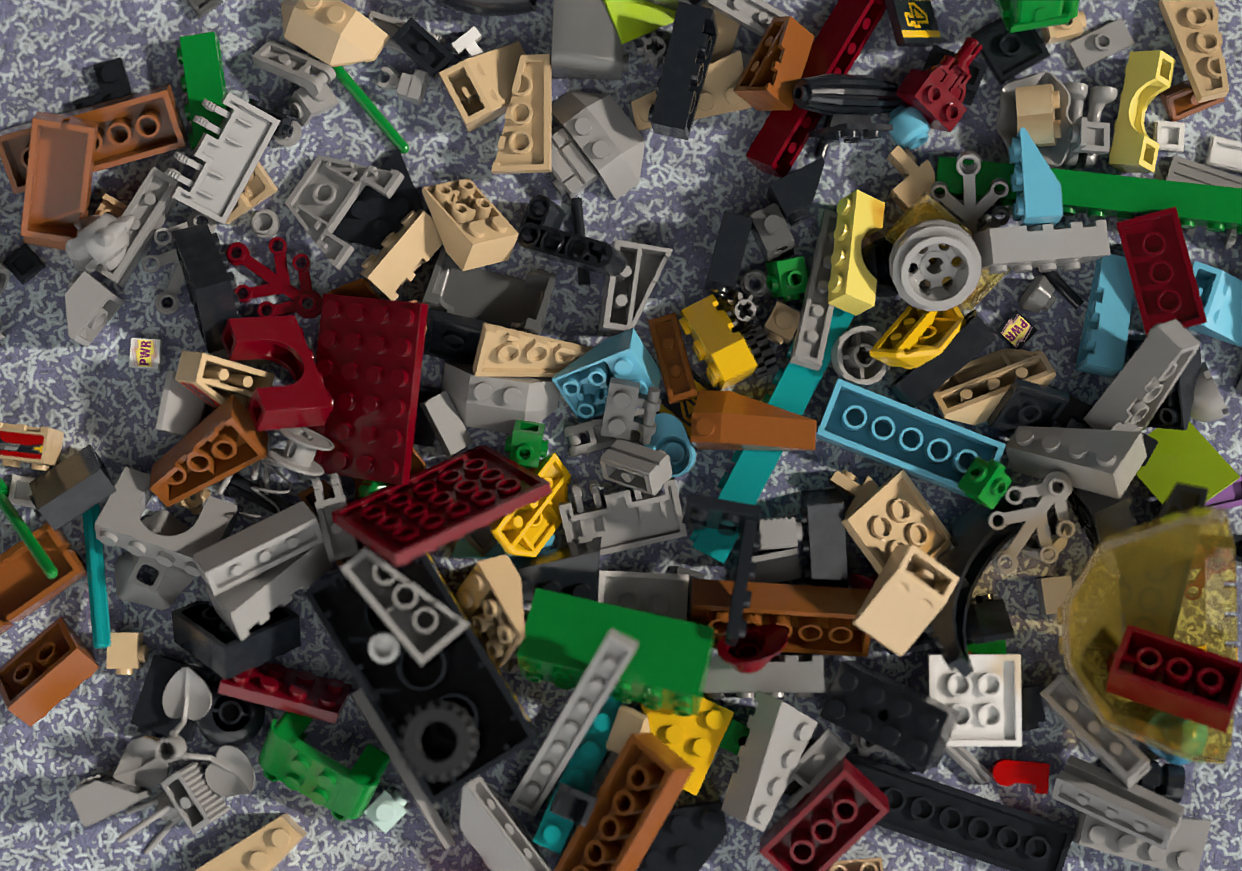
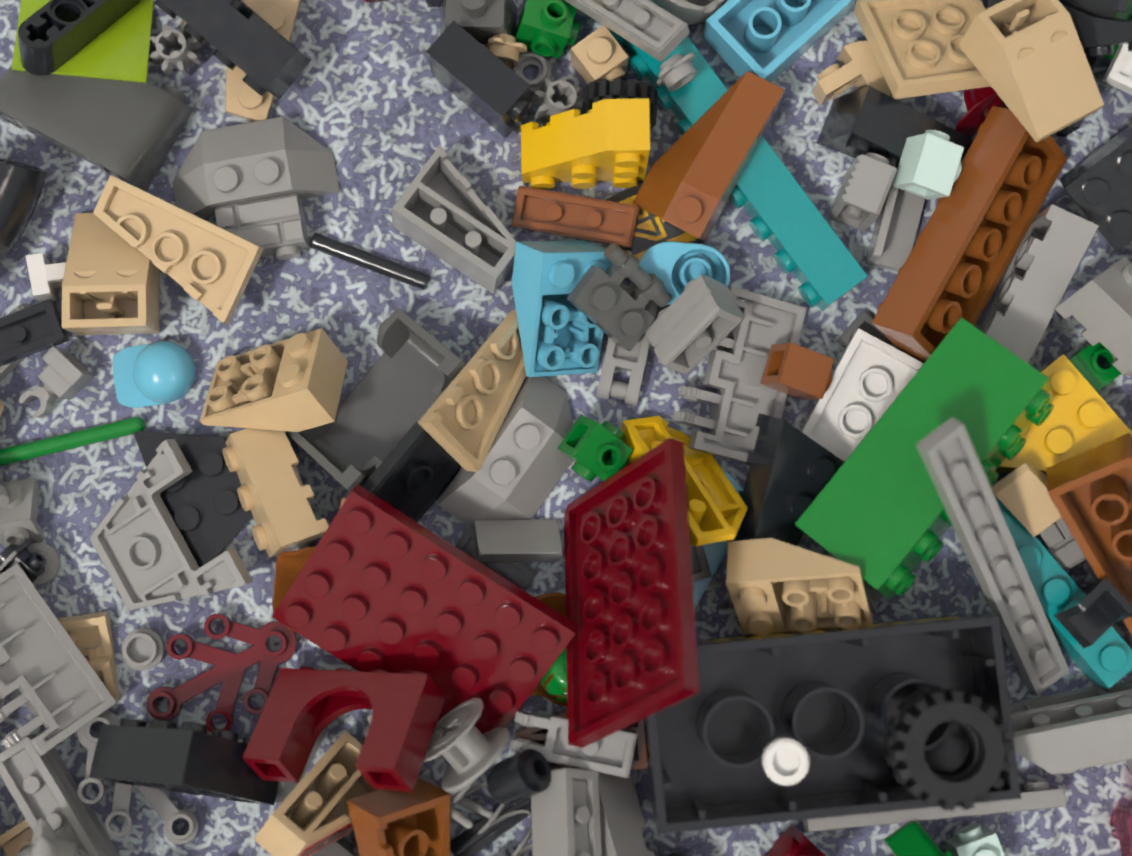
camera: 60 degrees left, 0 degrees up
(297, 493) = (519, 777): none -> black brick
(409, 612) = (758, 705): light grey wedge -> none
(440, 141) = (152, 374): none -> medium azure cap
(549, 237) = (370, 265): black beam -> none
(640, 548) = (797, 371): none -> dark orange brick
(730, 518) = (821, 239): black bracket -> none
(755, 649) = (1000, 284): dark red piece -> none
(756, 258) = (506, 48): none -> tan plate
(794, 376) = (677, 71): none -> light grey plate
(811, 566) = (929, 165): none -> light aqua brick

